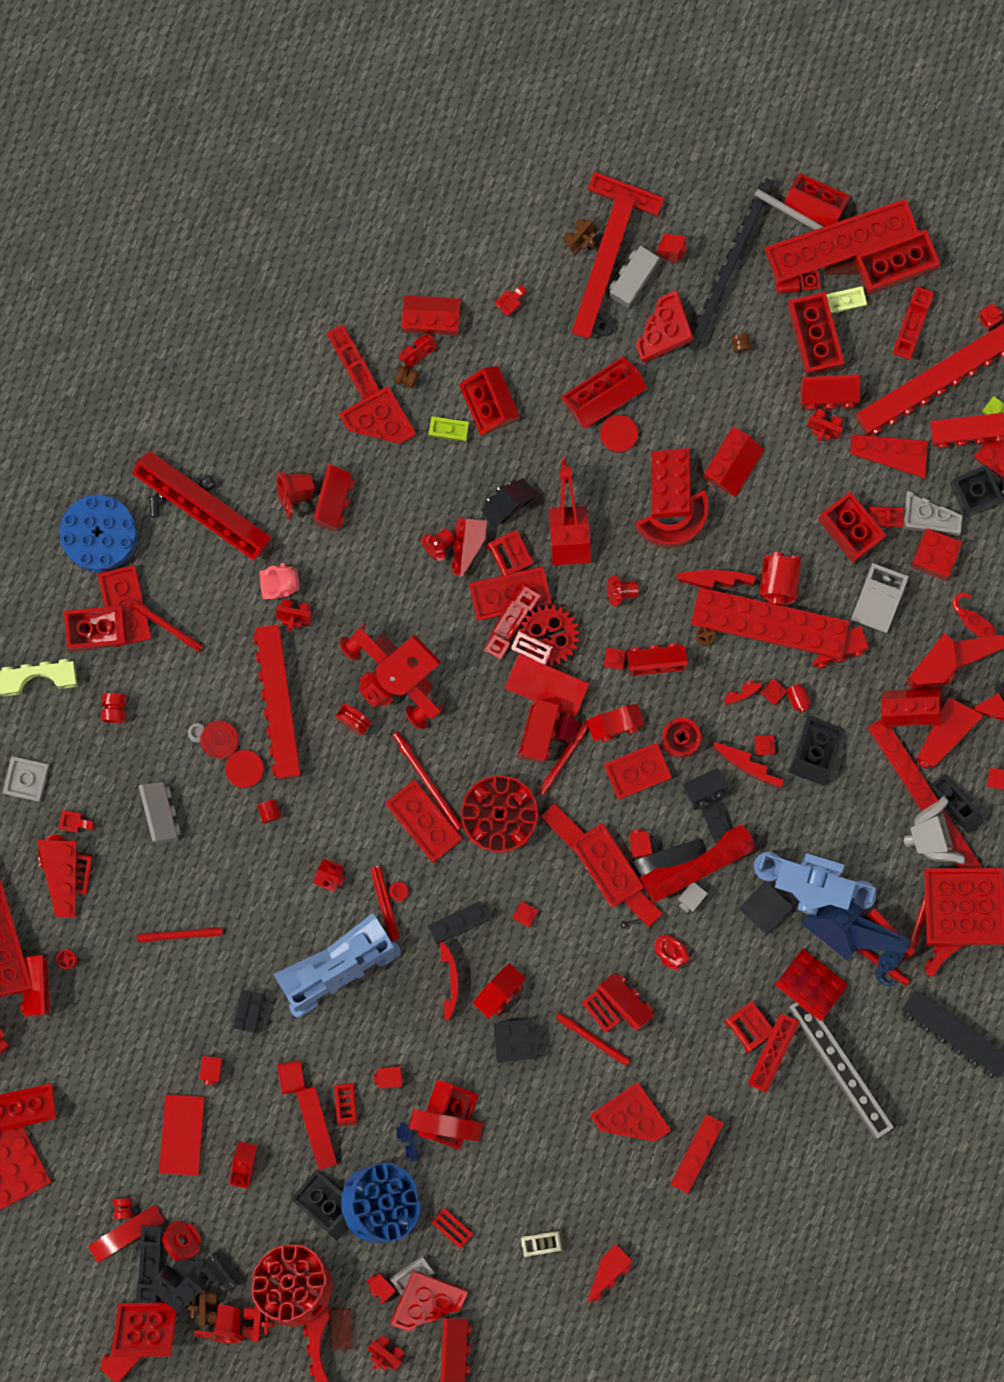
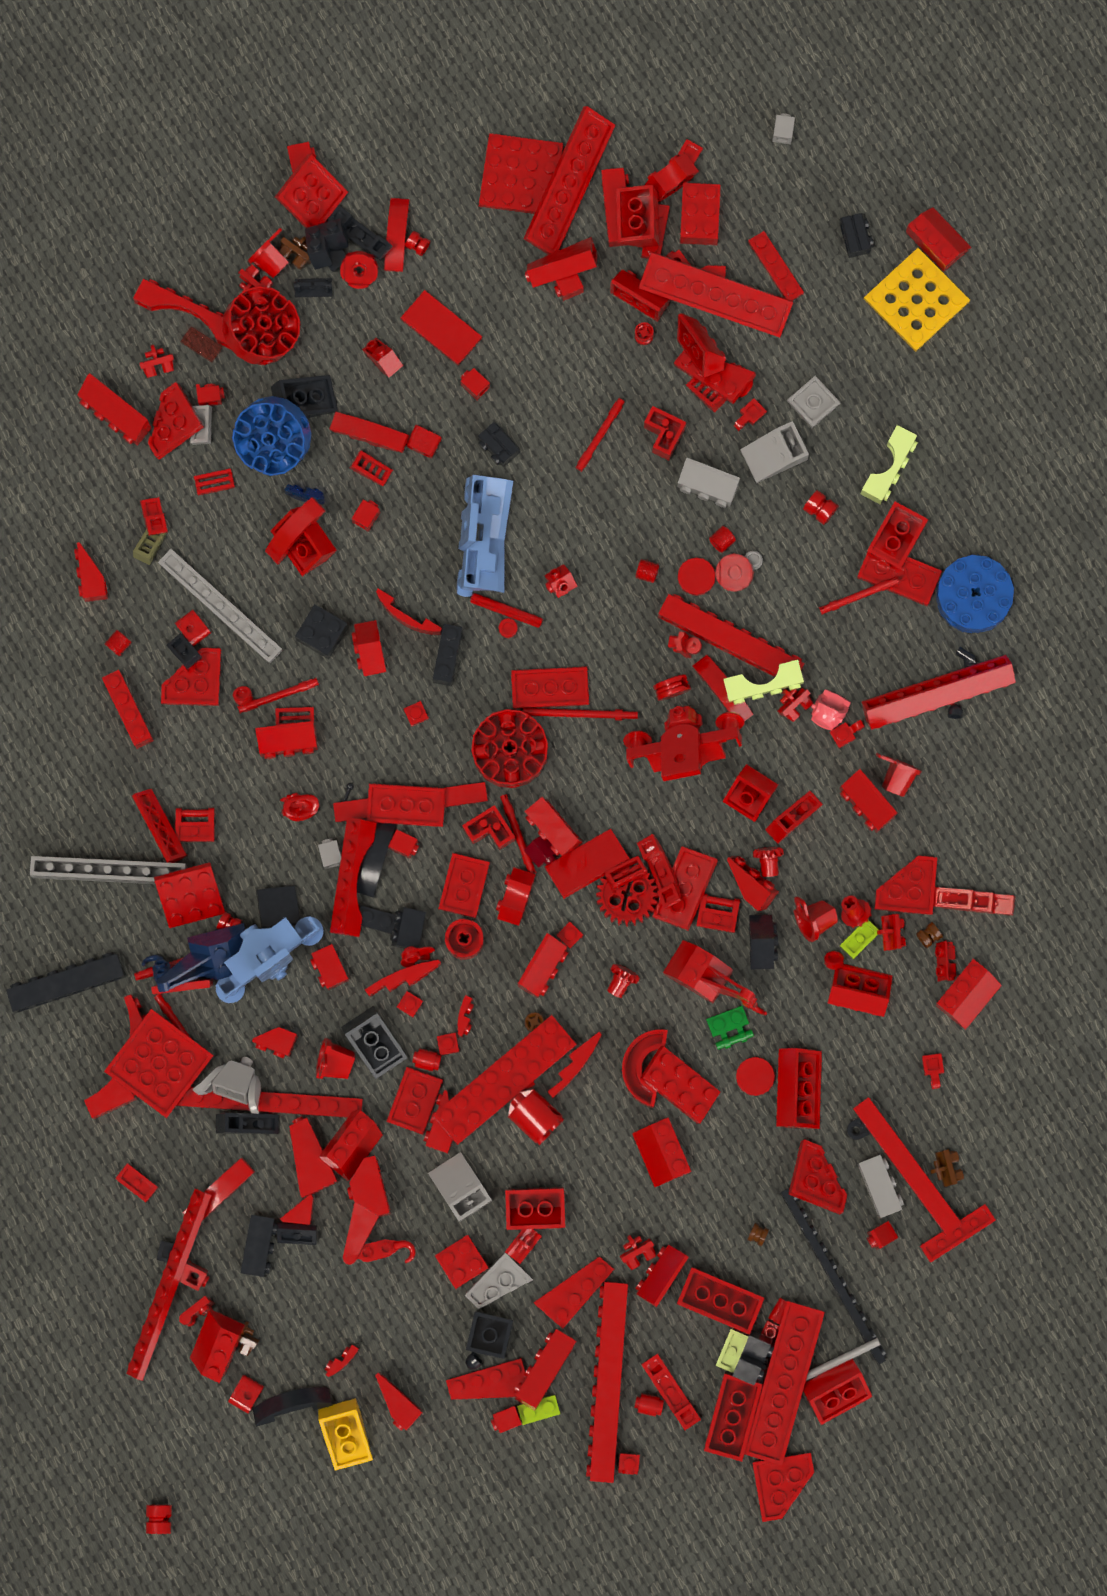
camera: 125 degrees right, 0 degrees up
(46, 901) = (699, 346): none -> red slope
(53, 1070) = (563, 263): none -> red slope
(70, 1052) = (568, 287): none -> red brick
(93, 778) = (775, 452): none -> light grey slope
(135, 878) = (669, 431): none -> red brick
(198, 769) = (722, 539): none -> red piece
(278, 631) = (739, 688): none -> yellowish green arch
(290, 556) = (844, 734): none -> red plate
(309, 733) = (684, 644): none -> red hips
(323, 681) = (714, 678): none -> red slope
(388, 549) = (793, 817): none -> red slope
(393, 597) = (750, 793): none -> red slope
(425, 407) = (891, 932): none -> red hips
(430, 445) = (855, 911): none -> red gear
(459, 473) = (814, 918): none -> red container
(481, 436) = (834, 960): none -> red tile
(519, 1256) = (153, 516): none -> red slope
(554, 1143) = (220, 606): none -> light grey plate
(573, 786) = (492, 824): none -> red brick
(588, 1152) = (192, 628): none -> red piece
(592, 485) = (727, 1022): none -> green plate
(614, 1067) = (242, 695): none -> red tile
(614, 1143) = (184, 651): none -> black plate
(647, 1205) = (118, 643): none -> red piece
(725, 768) = (412, 954): none -> red plate
(783, 830) = (329, 966): none -> red brick
(808, 938) = (228, 921): none -> red wheel
(837, 685) = (414, 1100): none -> red tile
(842, 277) = (751, 1362): none -> black brick
(856, 770) = (334, 1060): none -> red container
(872, 828) = (277, 1040): none -> red slope
(921, 191) = (781, 1484): none -> red plate
(935, 333) = (649, 1405): none -> red brick

